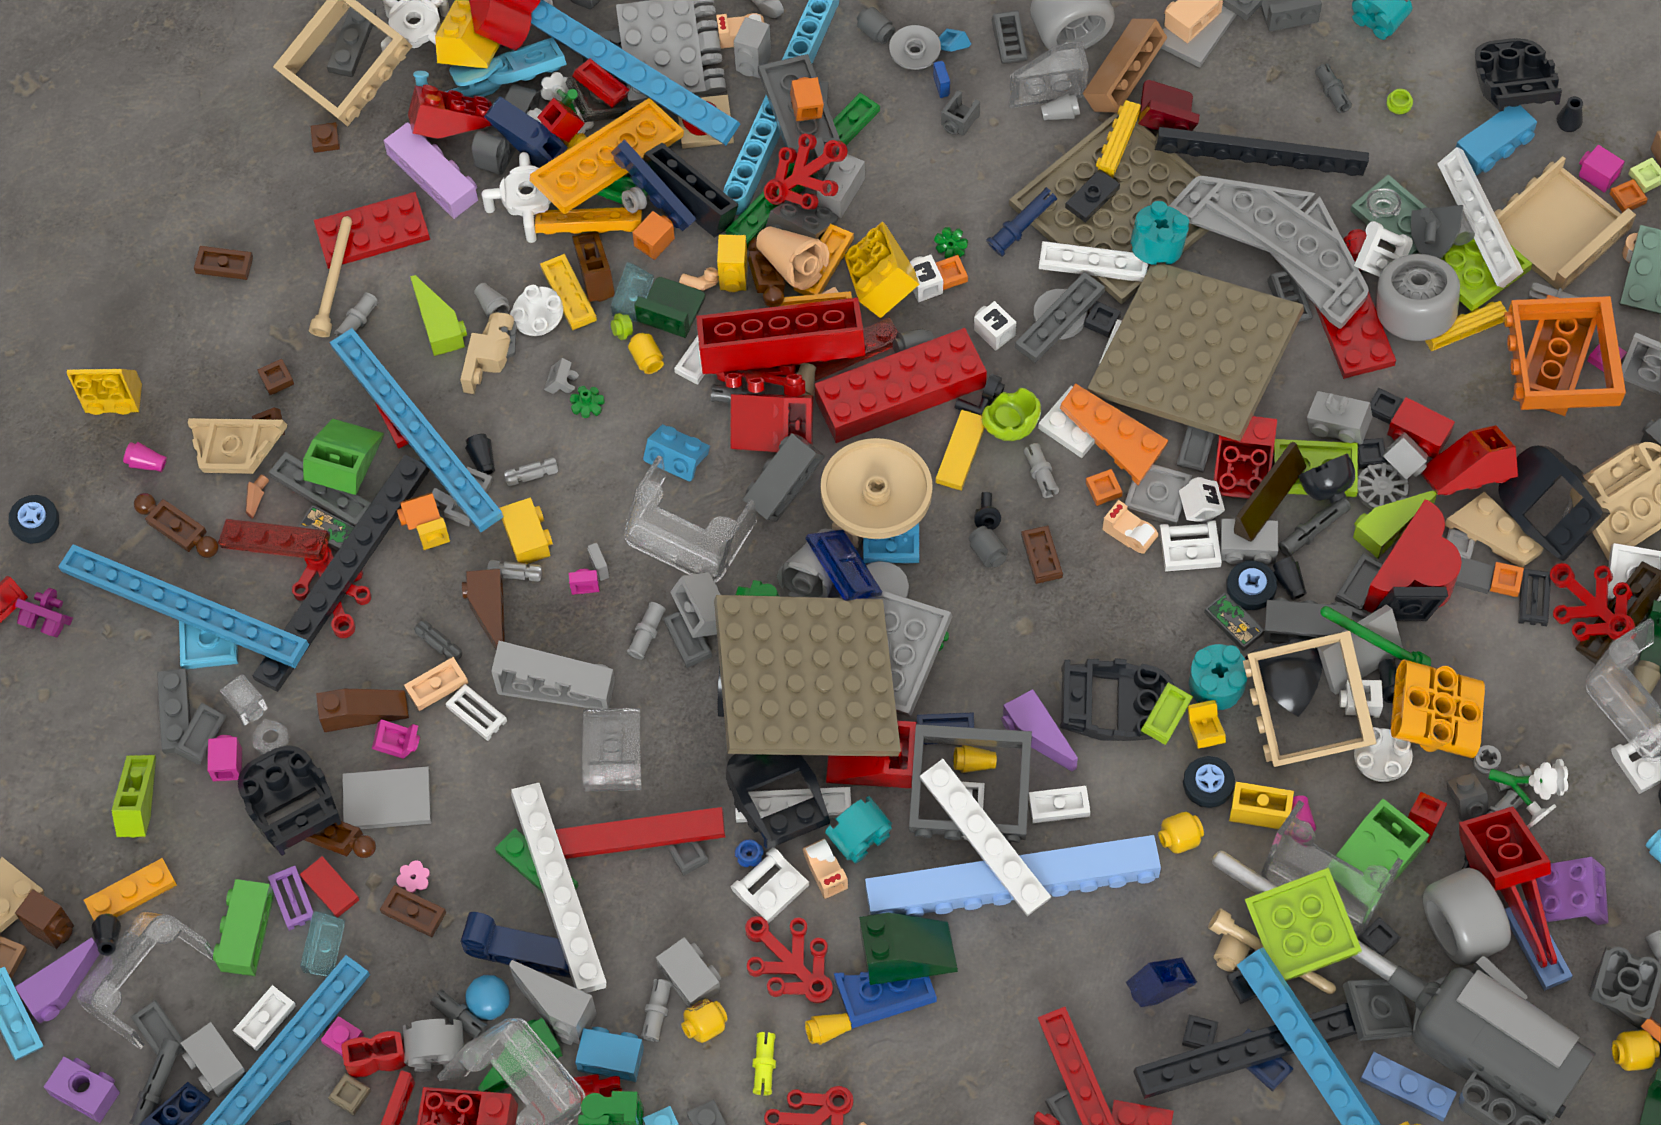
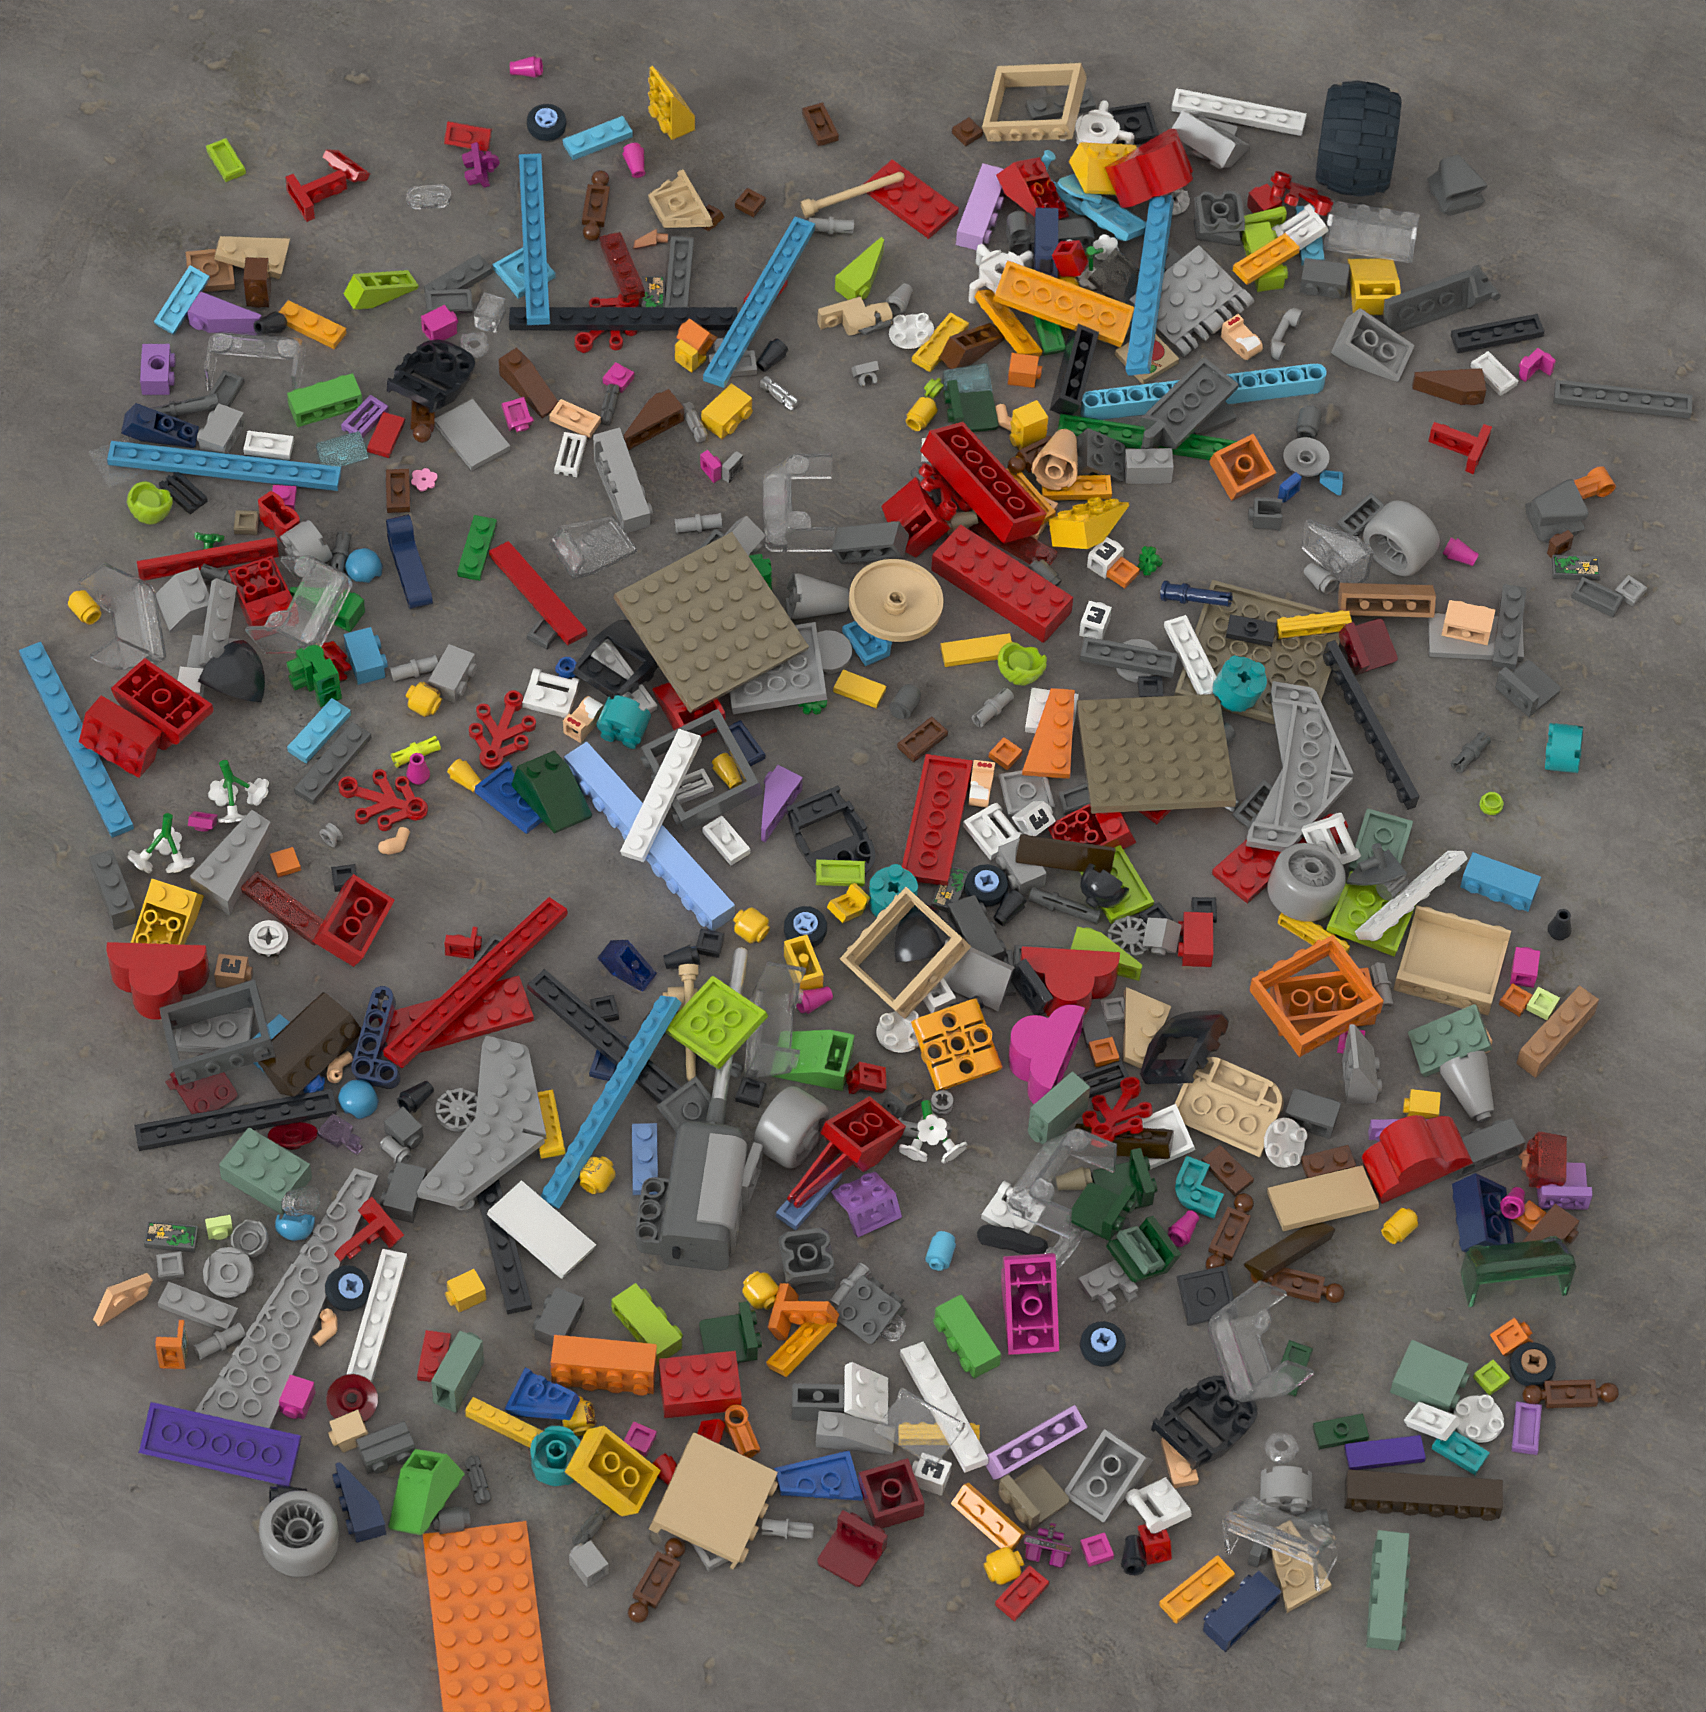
camera: 55 degrees right, 5 degrees down
(45, 686) = (427, 196): none -> clear plate
(87, 480) = (597, 138): none -> medium azure plate
(341, 456) = (711, 269): bright green slope -> none
(408, 614) = (619, 375): none -> dark pink plate
(558, 888) = (464, 562): white plate -> none
(560, 1005) = (376, 602): light grey slope -> none
(587, 402) = (859, 399): green plant -> none
(600, 82) = (1127, 271): red tile -> none
(634, 199) = (1040, 340): light grey bush -> none
(647, 179) = (1057, 334): dark blue plate -> none
(679, 451) = (854, 471): dark azure bracket -> none
(752, 47) = (1225, 349): light grey brick -> none
(792, 1079) = (417, 769): none -> dark pink cone
(802, 173) = (1113, 425): red plant -> none
(806, 99) = (1193, 398): orange brick -> none
(843, 565) = (820, 610): clear blue piece -> none
(899, 104) = (1242, 467): none -> orange brick
(943, 582) = (859, 689): none -> yellow tile
(987, 515) = (931, 691): black plate -> none
(991, 391) = (1041, 641): black plate -> none
(1148, 590) = (937, 818): none -> red plate
(1174, 885) = (710, 943): none -> black tile
(1182, 920) = (684, 955): none -> black cone
(1339, 417) = (1166, 878): light grey brick -> none
(1373, 637) = (991, 1017): green piece -> none
(1383, 195) = (1382, 819): clear piece -> none
(1472, 461) = (1186, 983): red slope -> none
(1494, 632) = (1044, 1048): none -> dark pink brick
(1516, 73) = (1579, 860): black slope -> none
(1564, 653) = (1058, 1108): none -> sand green brick

